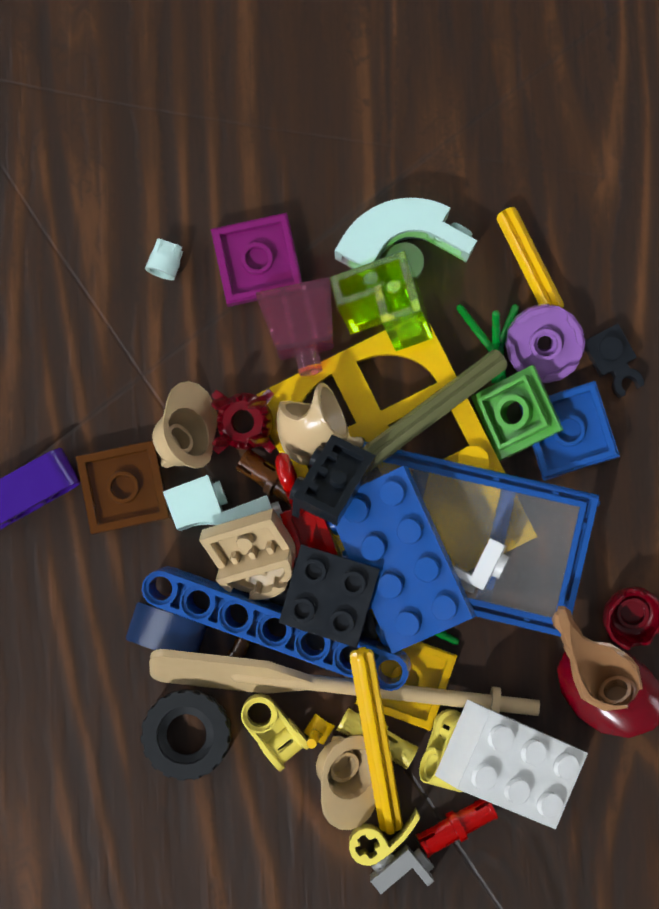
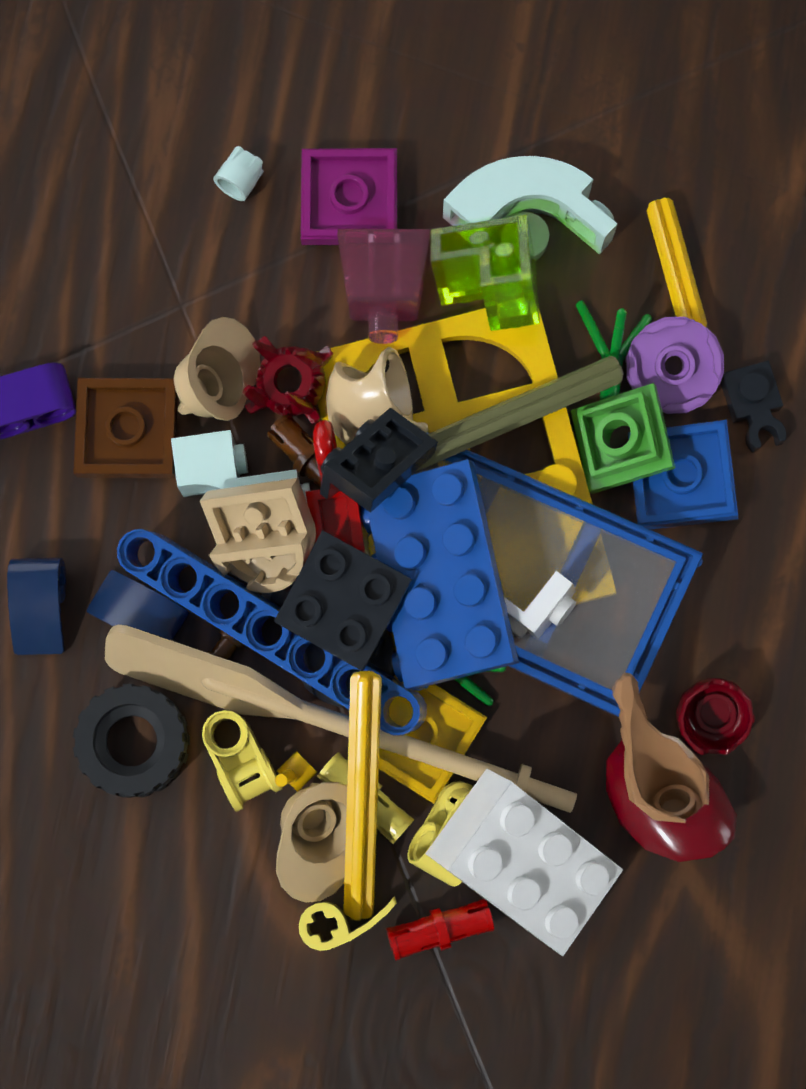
camera: 10 degrees right, 5 degrees down
(85, 644) = (34, 602): none -> dark blue panel
(397, 865) = (346, 961): light grey bracket -> none

